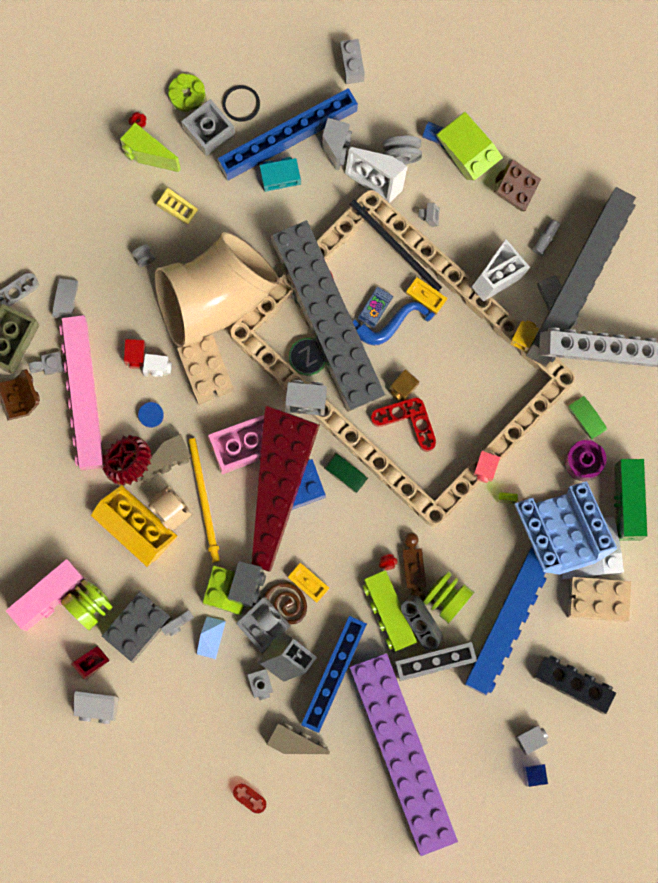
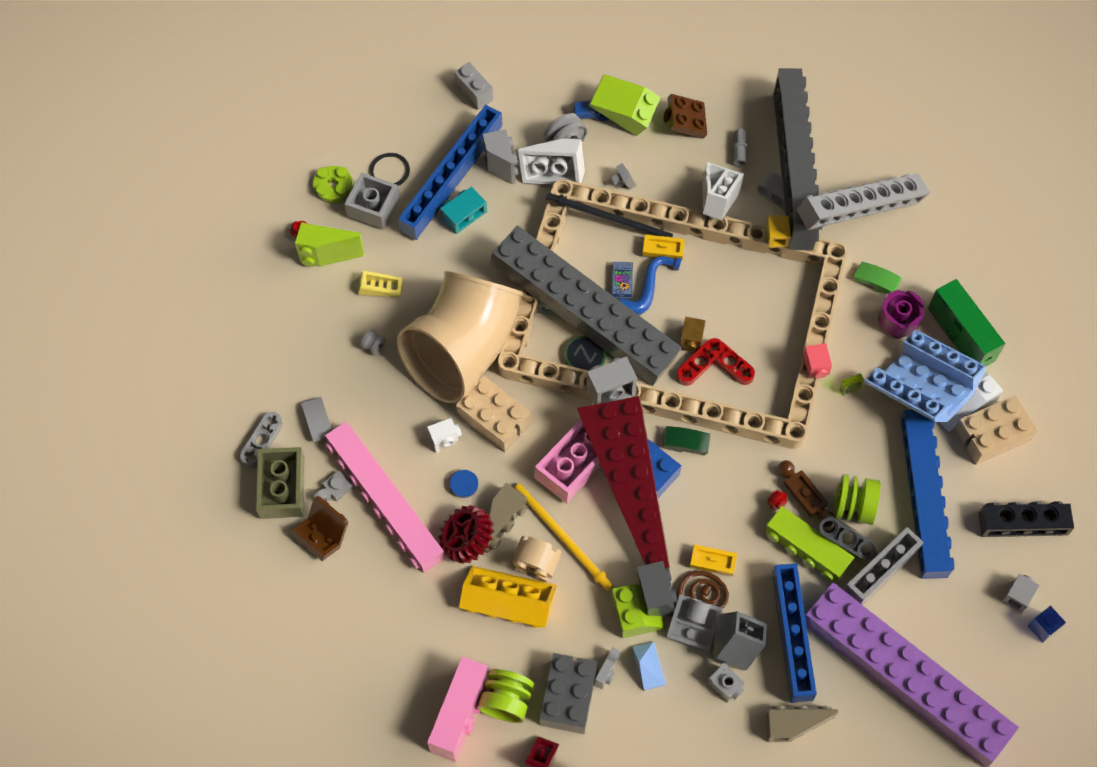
camera: 25 degrees left, 15 degrees down
(134, 353) = (415, 433): red brick -> none

